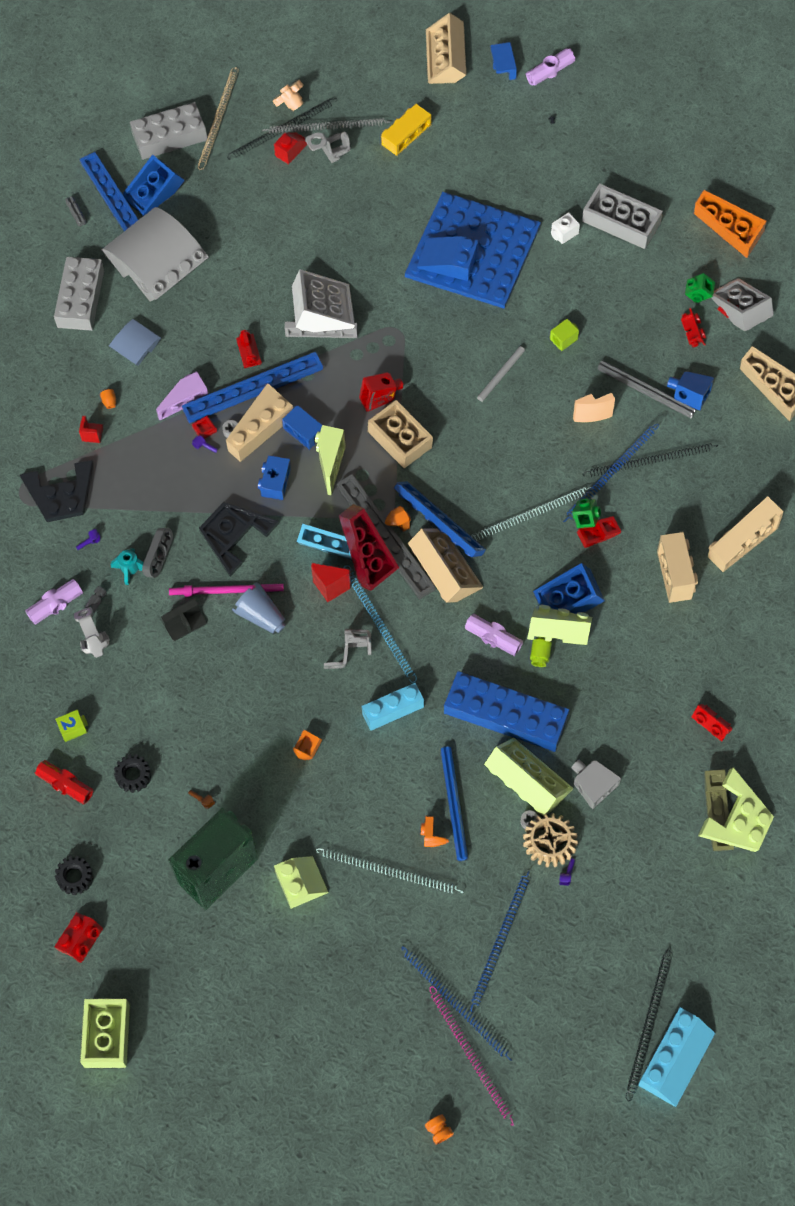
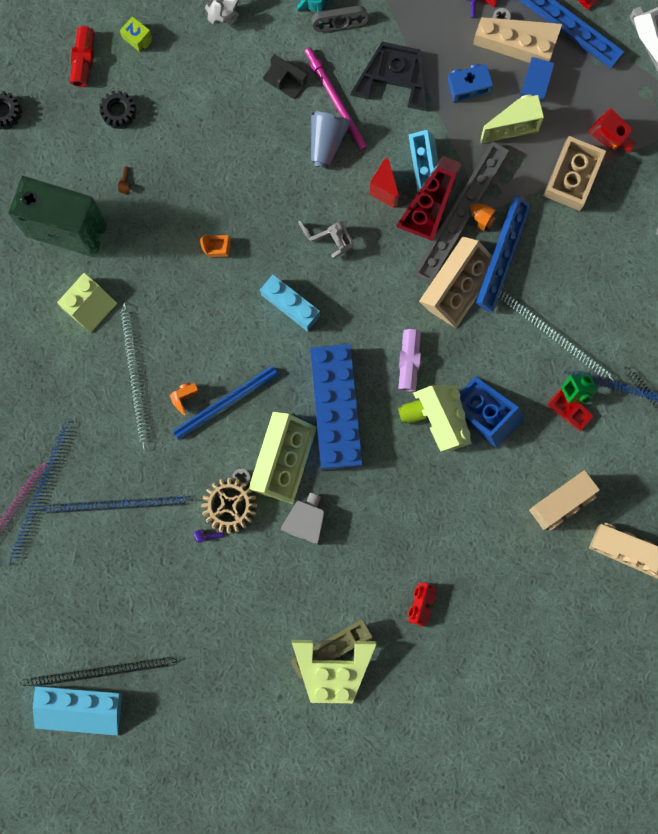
camera: 65 degrees right, 15 degrees up
(381, 625) = (370, 250): medium azure piece -> none

